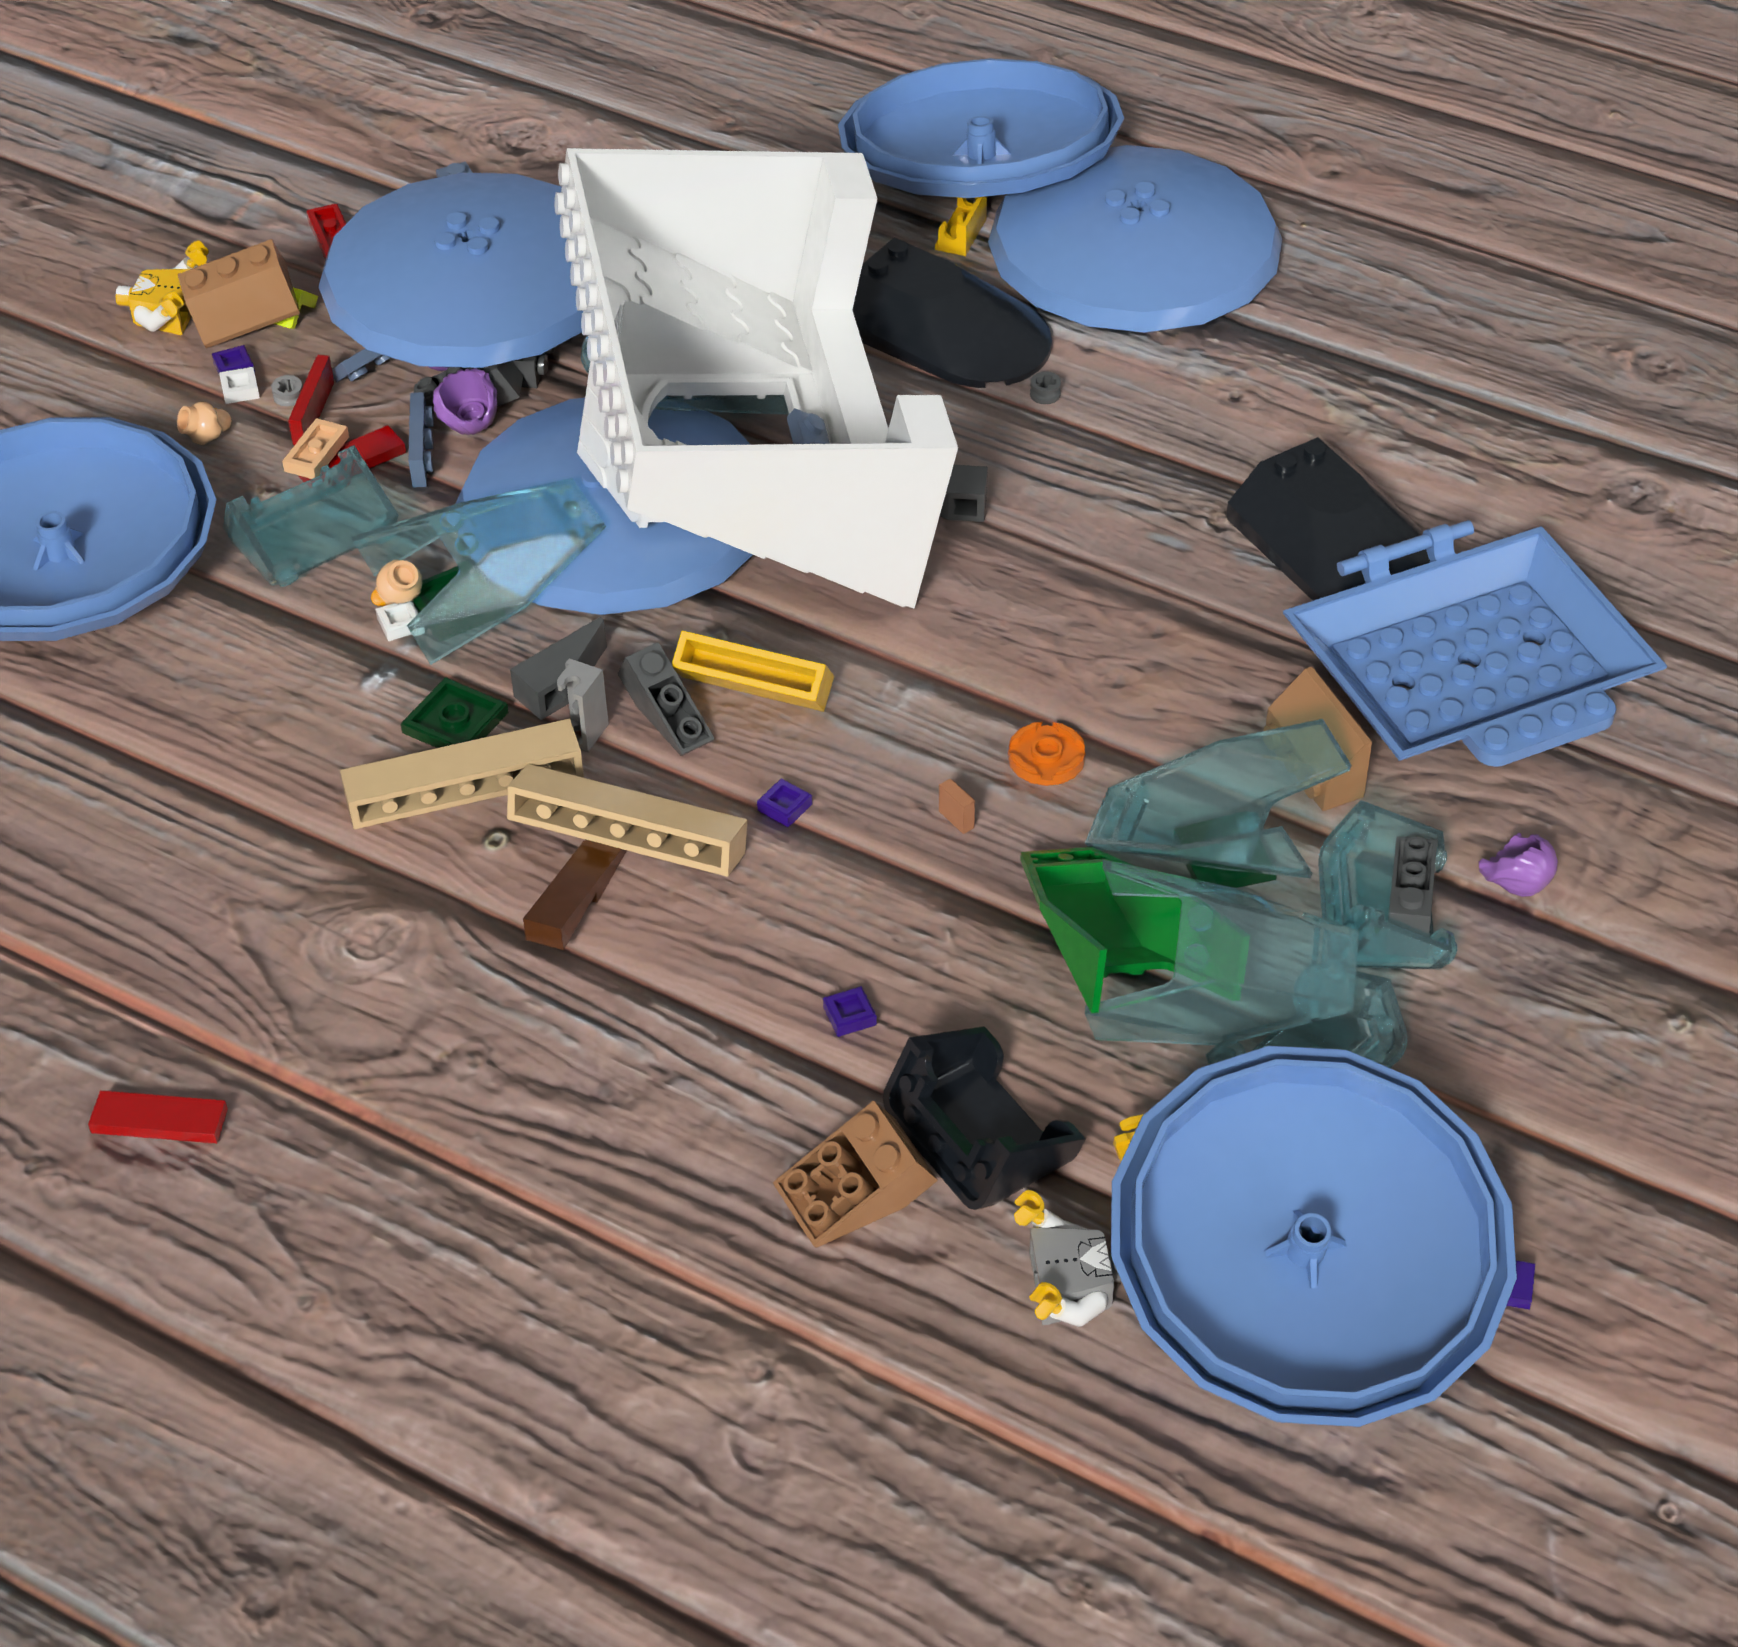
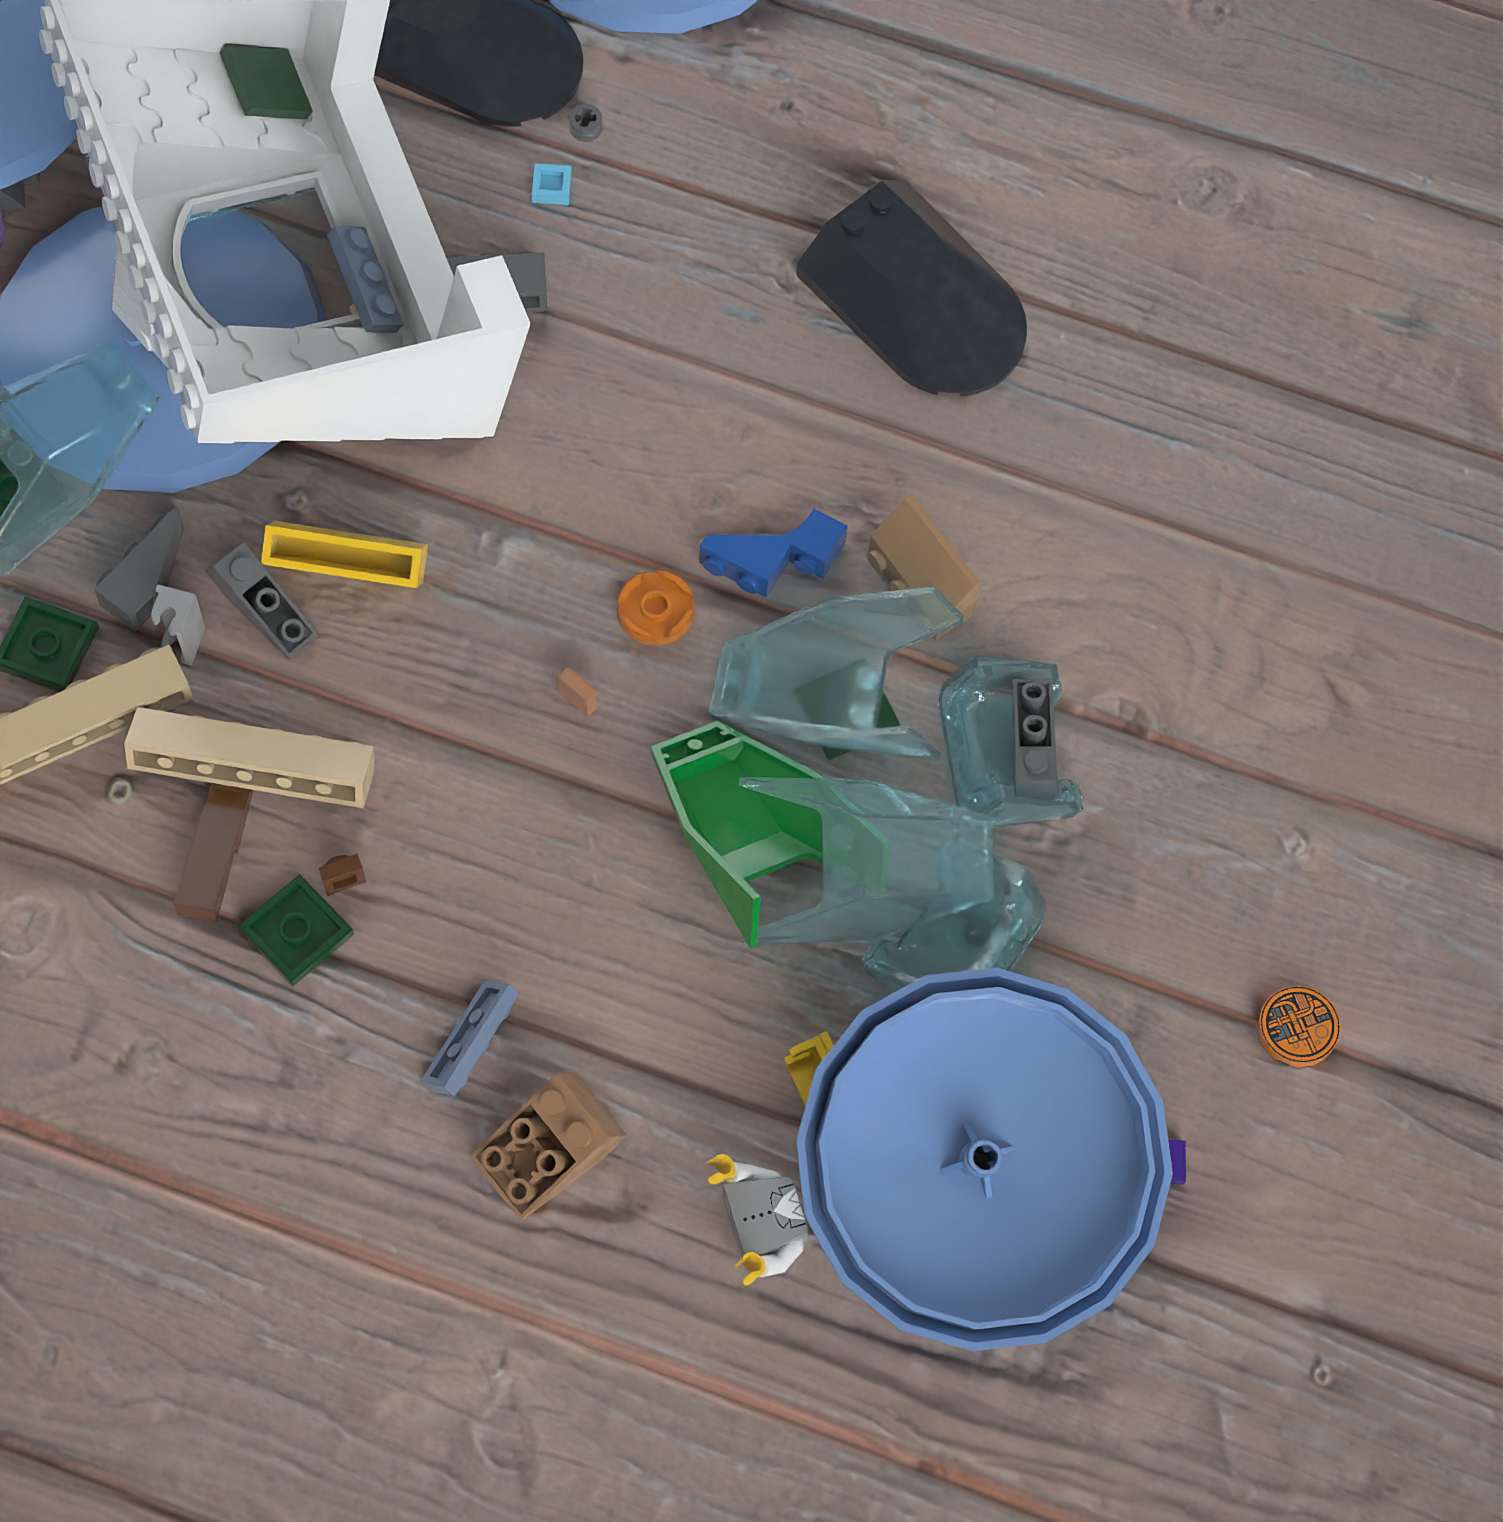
camera: 15 degrees left, 20 degrees up
(639, 969) = (295, 930): none -> dark green tile
(694, 925) = (341, 873): none -> reddish brown plate
(754, 299) = (266, 82): none -> dark green tile
(784, 802) = (403, 706): dark purple tile -> none
(793, 1076) = (470, 1038): none -> sand blue plate
(849, 1011) = (510, 949): dark purple tile -> none
(967, 1121) = (650, 1065): black windscreen -> none
(1005, 428) = (551, 184): none -> medium azure tile
(1157, 722) = (759, 560): none -> blue arch
(1479, 612) = (1124, 471): medium blue container -> none
(1522, 866) = (1133, 689): medium lavender hair -> none
(1670, 1179) = (1298, 1026): none -> tile

